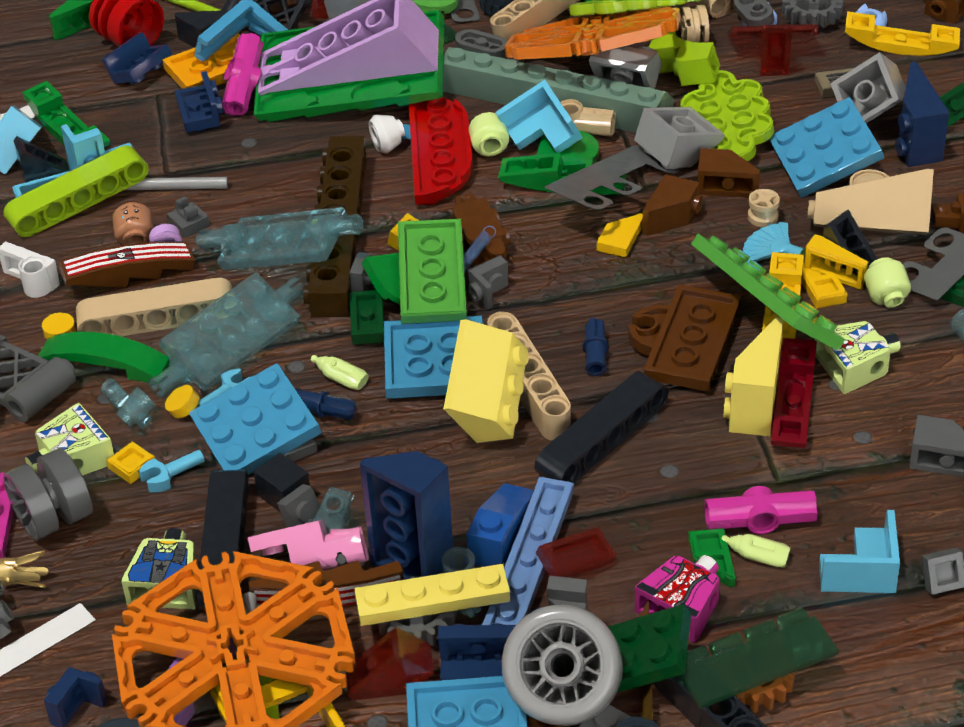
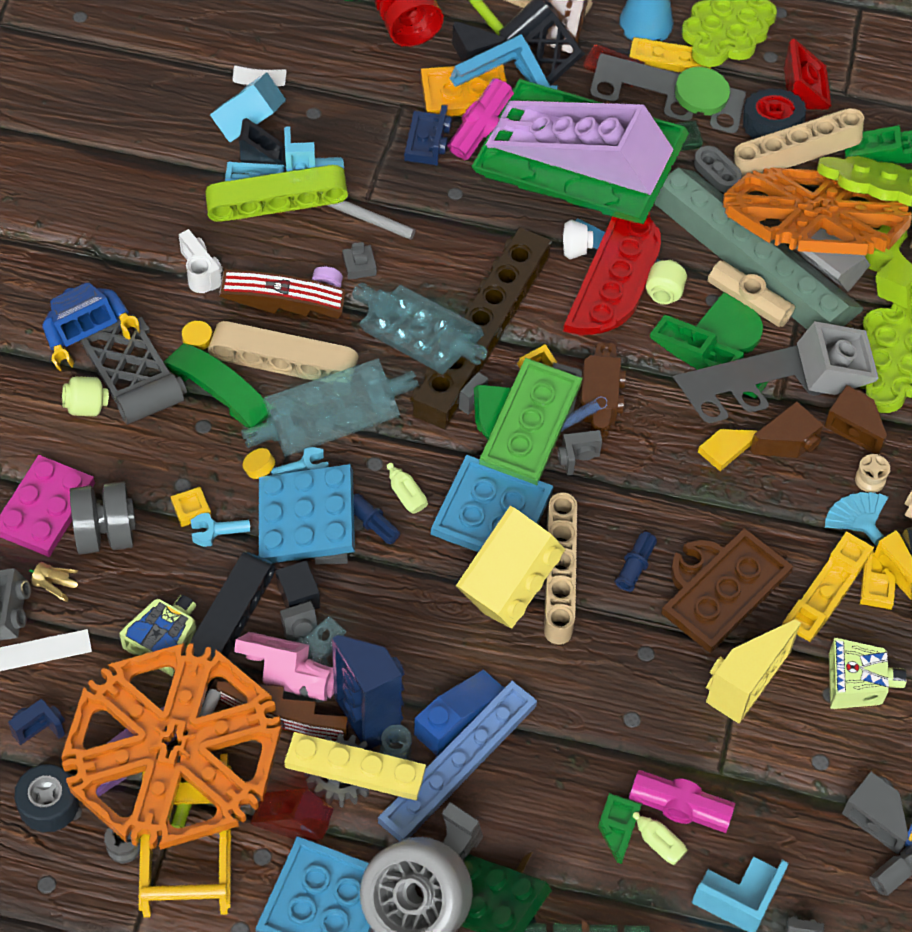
camera: 20 degrees right, 15 degrees up
(52, 113) = (303, 103): green slope -> none
(78, 436) = (147, 469): yellowish green torso -> none
(131, 407) = (216, 449): clear light blue plate -> none
(132, 223) = (307, 251): nougat head -> none
(134, 59) = (397, 58): dark blue bracket -> none
(366, 317) = (455, 441): dark green plate -> none
(472, 650) = (362, 834): dark blue bracket -> none
(538, 114) = (717, 283): medium azure panel -> none
(576, 553) = (501, 774): clear red tile -> none
(602, 428) = (593, 653): black beam -> none
(682, 583) = (567, 855): torso -> none
(769, 290) = (810, 581): bright green plate -> none
(794, 393) = (779, 695): dark red slope -> none

